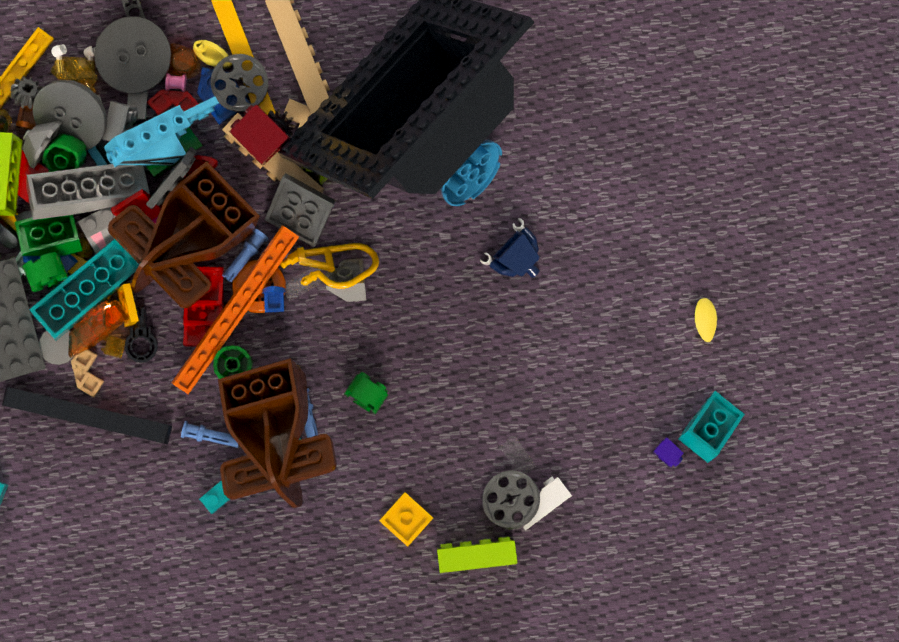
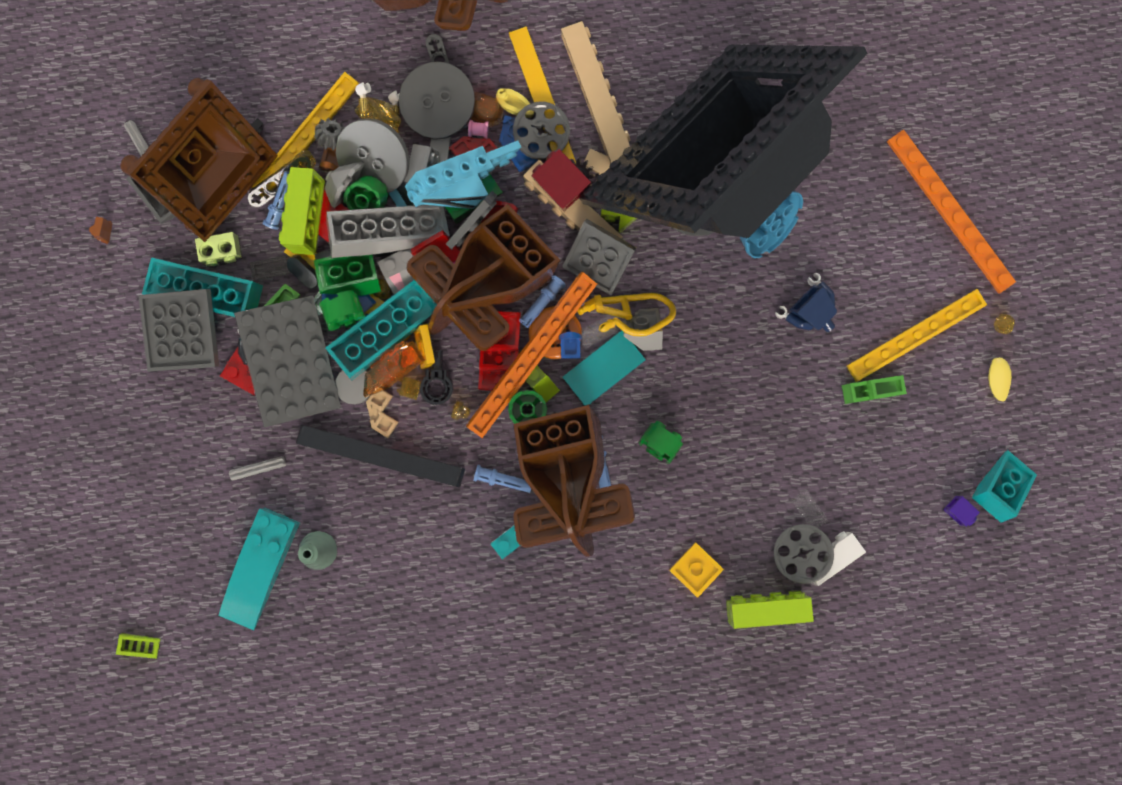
camera: 10 degrees right, 0 degrees up
(33, 512) = (317, 550): none -> sand green cone
(162, 368) = (457, 409): none -> clear yellow tile
(247, 338) = (542, 384): none -> lime slope
(308, 321) = (603, 368): none -> teal tile
(580, 333) = (874, 389): none -> bright green slope
(622, 278) = (916, 335): none -> yellow tile
(655, 151) = (951, 211): none -> orange plate
(709, 264) = (1004, 324): none -> clear yellow tile

